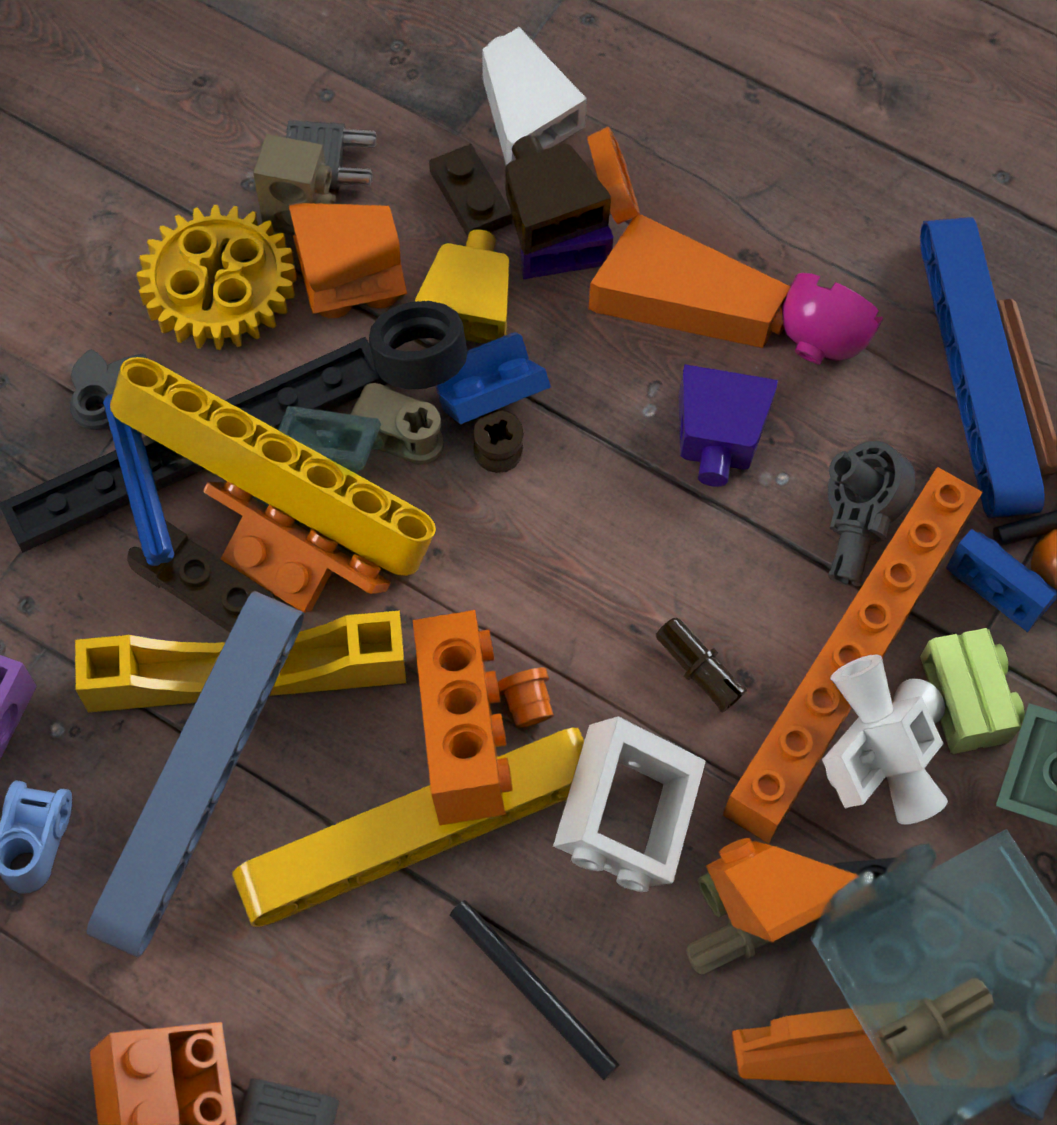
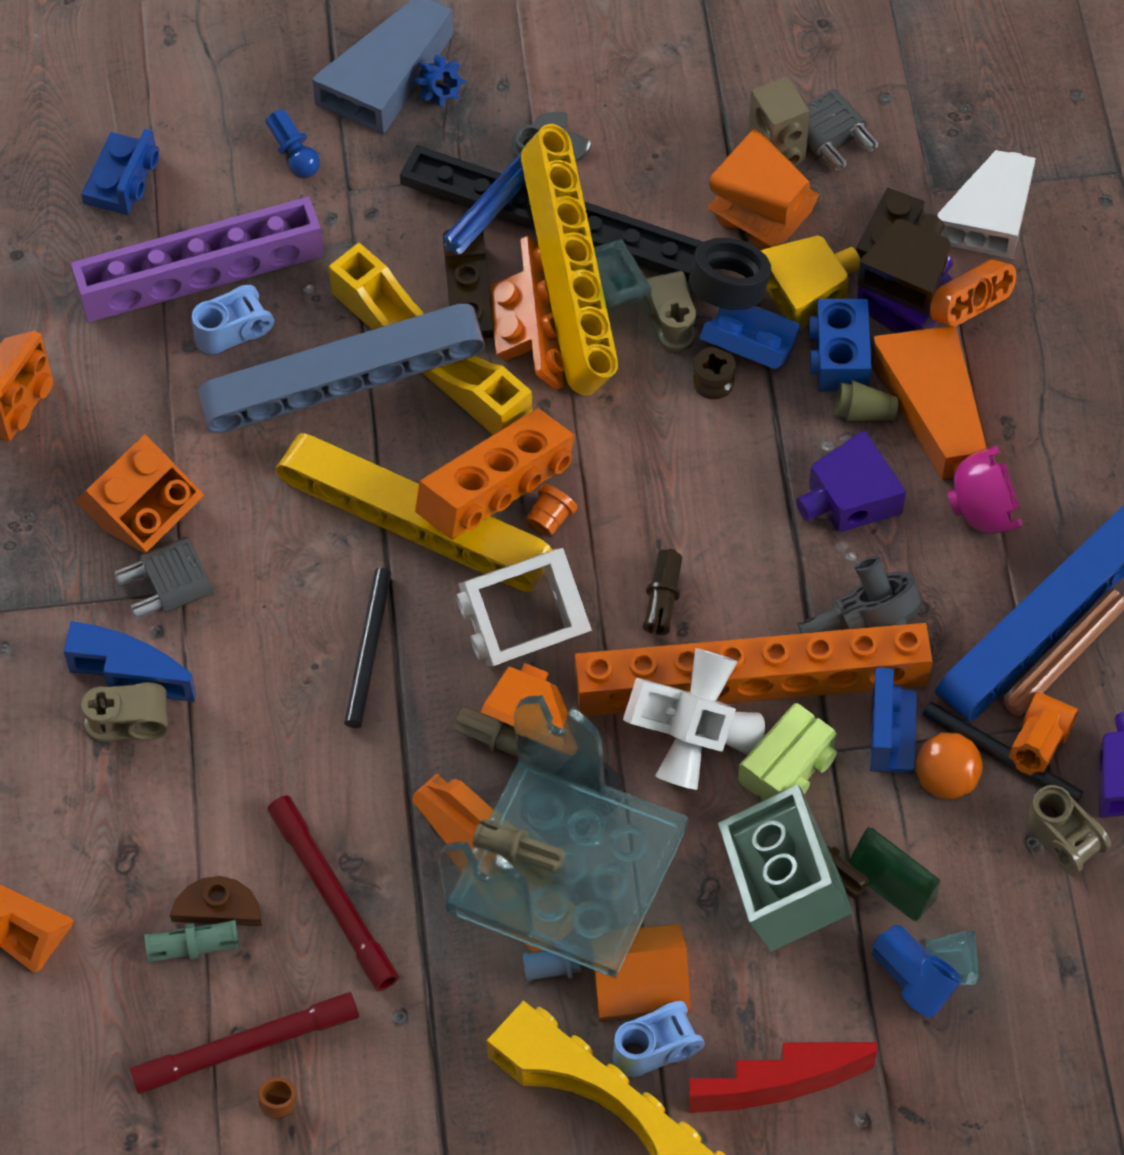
camera: 55 degrees right, 5 degrees down
(175, 269) = (678, 127): yellow gear -> none
(572, 309) = (844, 345): none -> blue brick
(638, 347) = (864, 403): none -> olive cone

